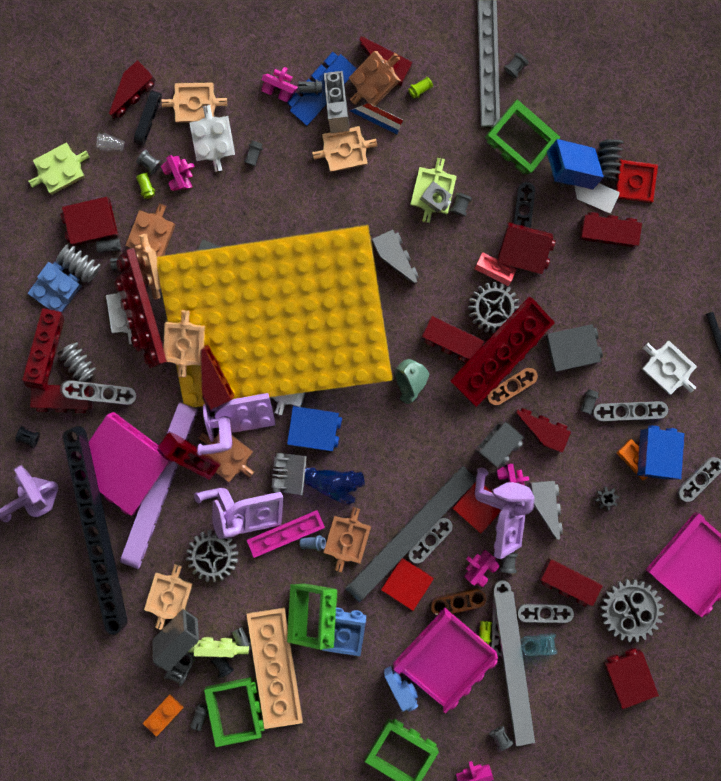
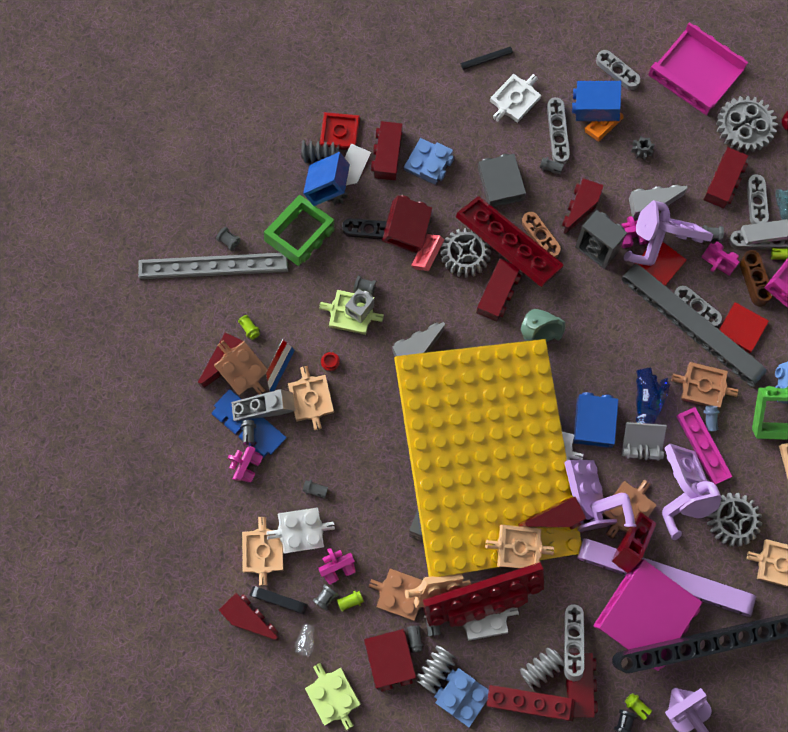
camera: 90 degrees left, 15 degrees down
(42, 449) = (637, 706): none -> lime pin
(382, 169) = (330, 361): none -> red plate
(598, 274) = (429, 161): none -> medium blue plate

